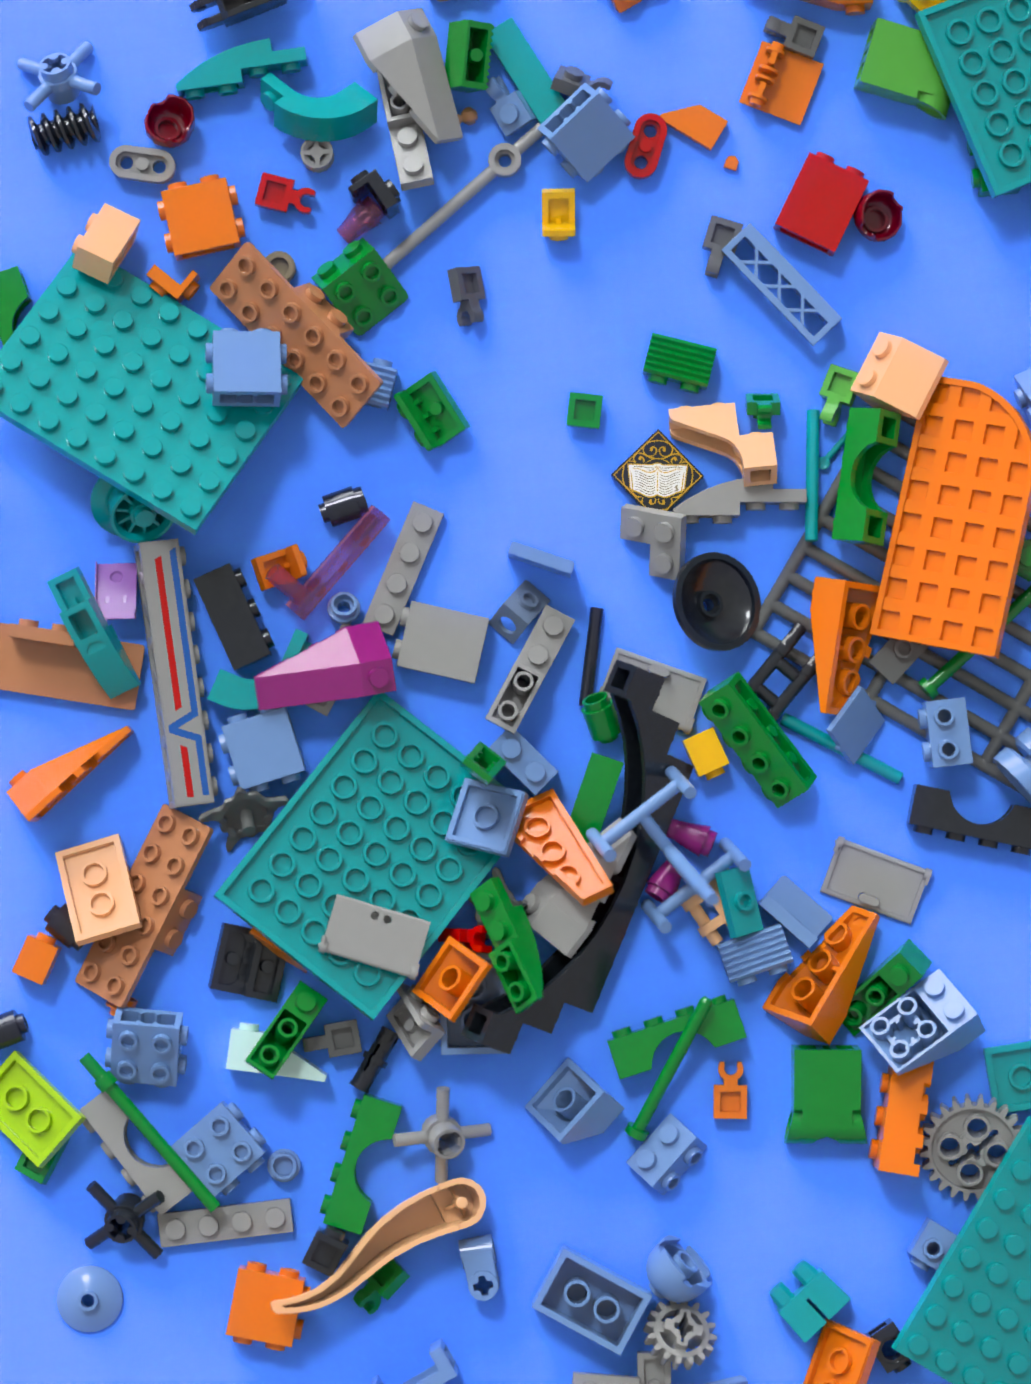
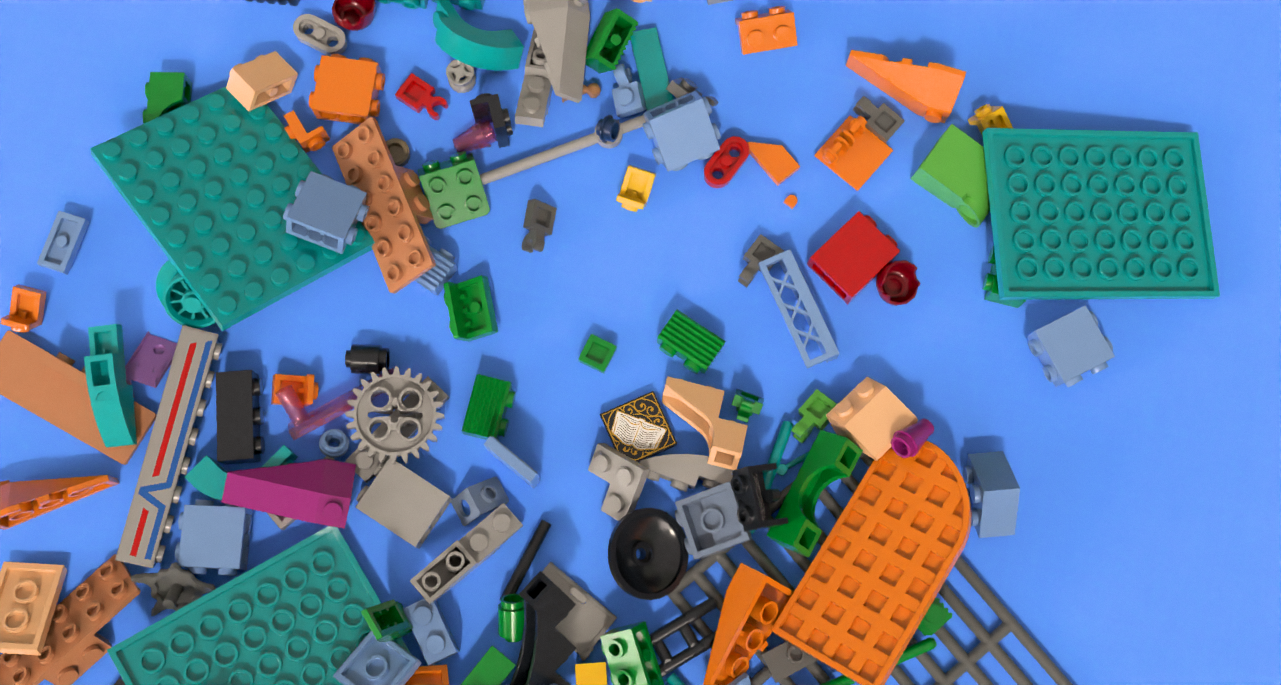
camera: 15 degrees right, 10 degrees down
(390, 527) = (393, 442): none -> light grey gear
(491, 511) = (488, 408): none -> green brick
(504, 159) = (608, 129): none -> dark blue plate
(770, 544) = (711, 521): none -> sand blue plate
(806, 506) = (754, 498): none -> black window
(948, 383) = (911, 438): none -> magenta cone

